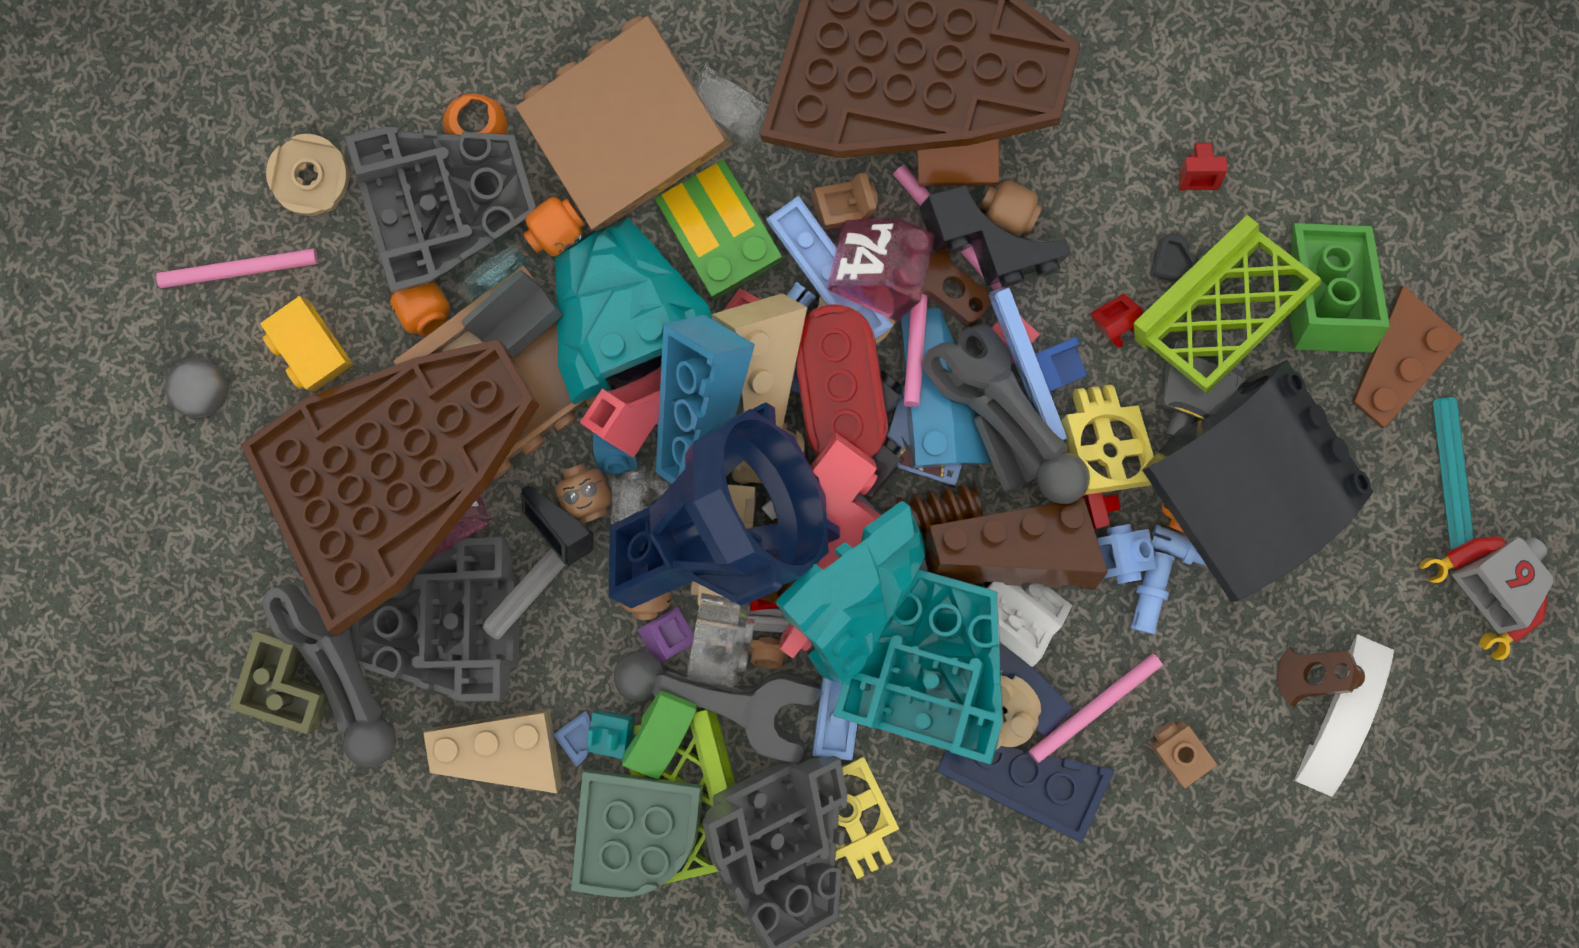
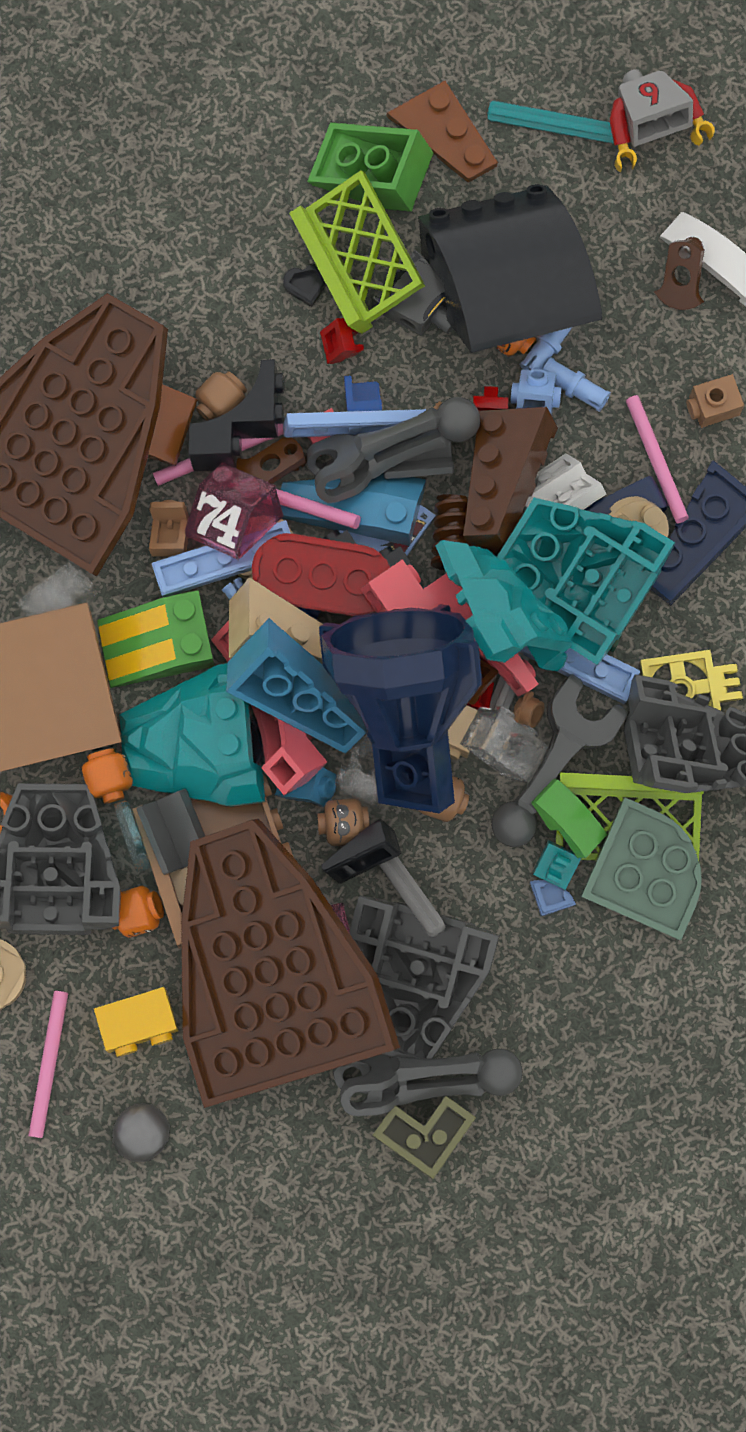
camera: 75 degrees left, 10 degrees down
(498, 750) = (540, 962): tan wedge -> none
(667, 634) = (486, 793): medium lavender slope -> none
(1101, 409) = (408, 377): light yellow piece -> none
(1202, 169) = (239, 237): red tile -> none

